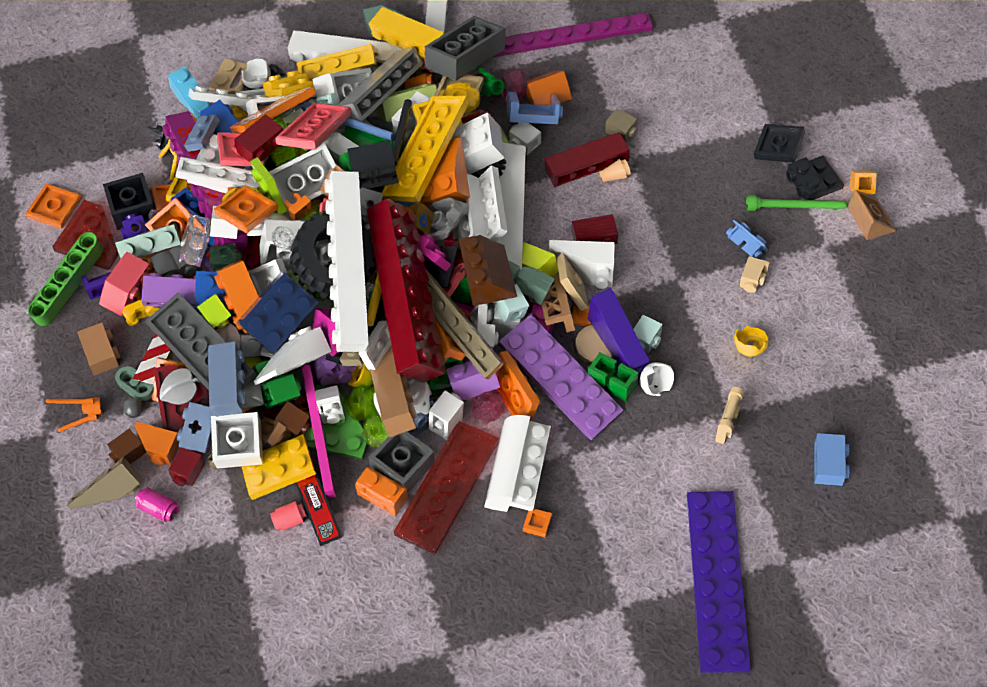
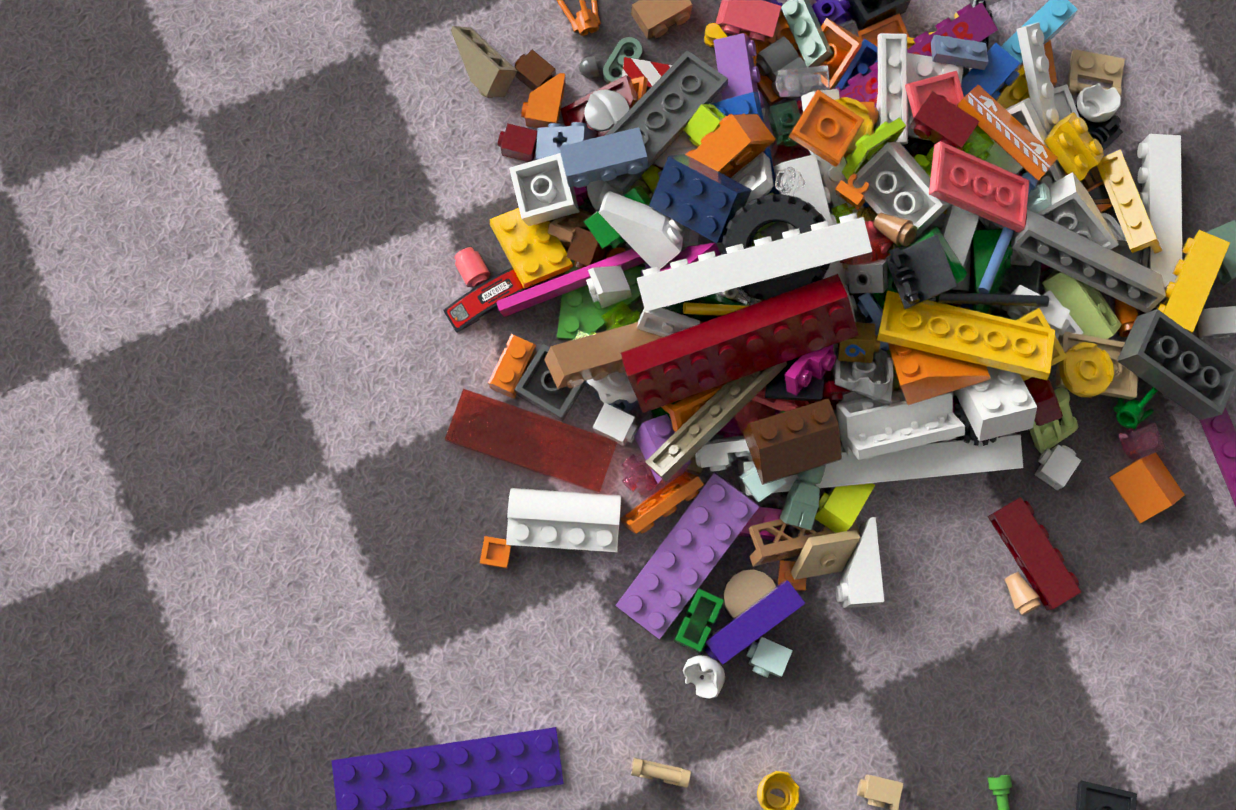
camera: 75 degrees right, 20 degrees up
(156, 504) = (470, 121): dark pink head -> none
(533, 113) = (1096, 473): medium blue panel -> none
(595, 229) = (917, 576): dark red brick -> none
(623, 123) = (1098, 595): dark tan brick -> none
(741, 233) = (946, 773): medium blue hinge -> none

